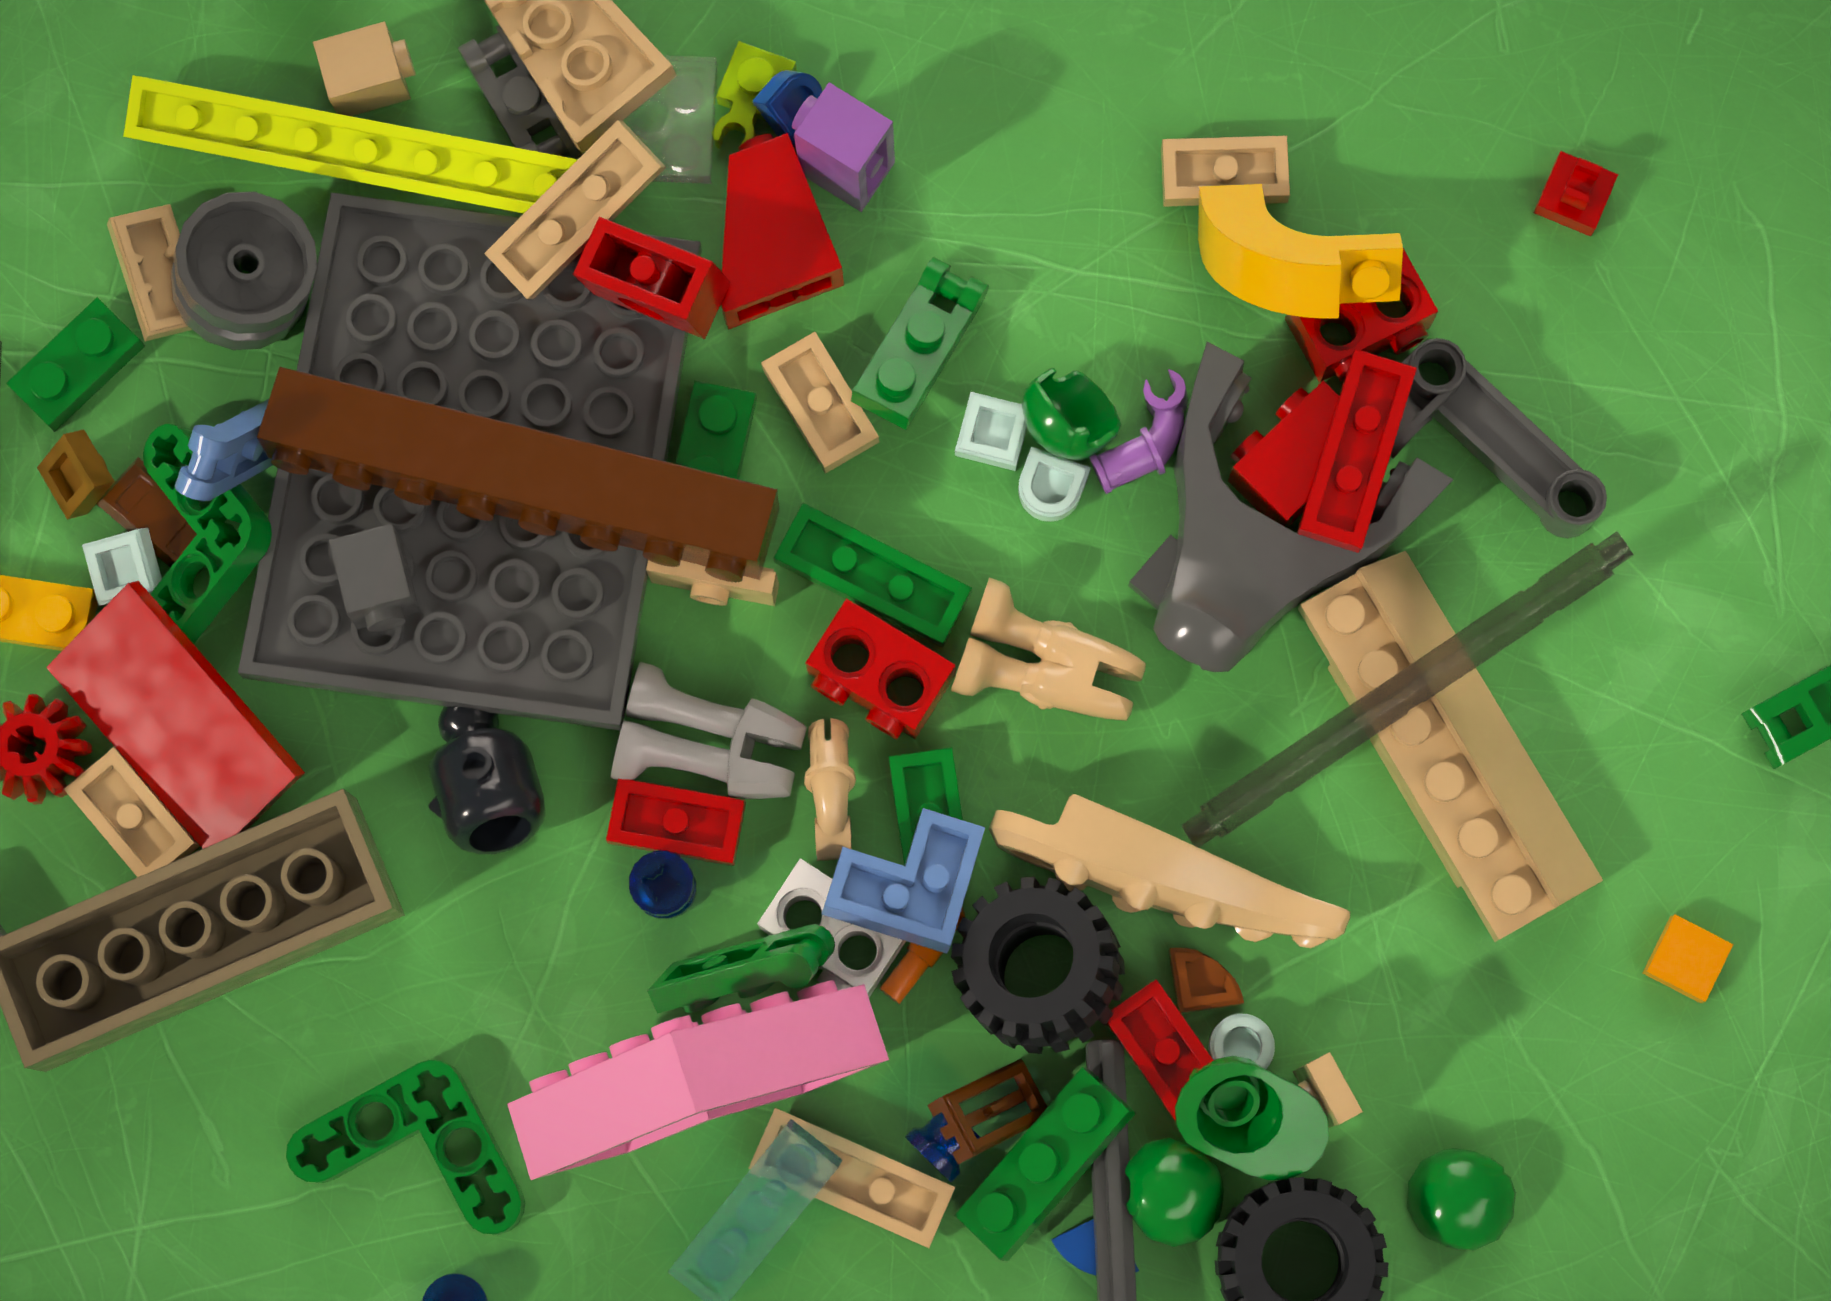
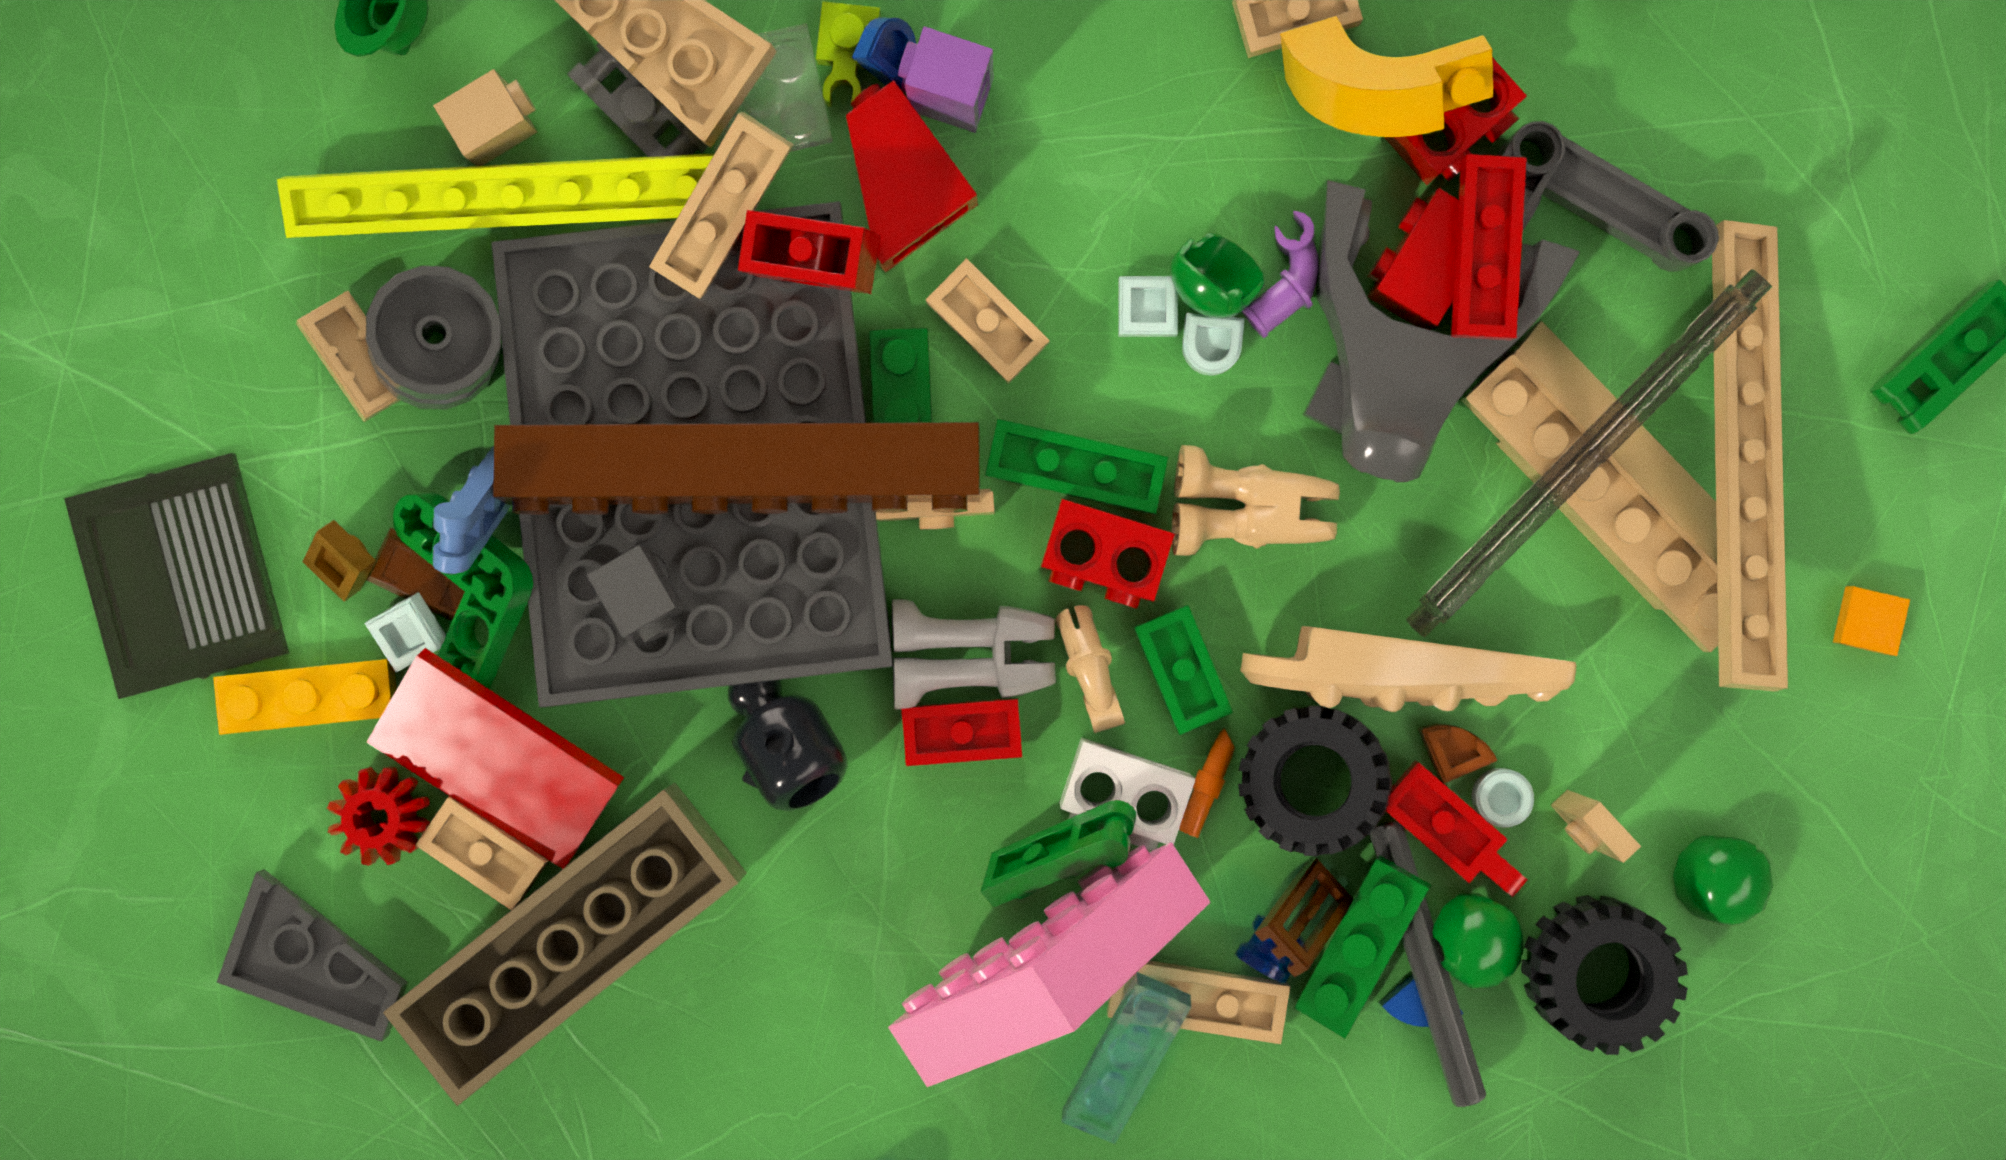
camera: 15 degrees left, 10 degrees up
(75, 364) = (308, 458): green plate -> none
(410, 1119) = (802, 1047): green beam -> none
(672, 899) = (965, 781): clear blue wheel -> none
(911, 900) = (1196, 755): medium blue plate -> none
(918, 345) = (1062, 246): green plate -> none
(1251, 1119) = (1538, 869): green piece -> none
(1582, 749) = (1750, 471): none -> tan plate

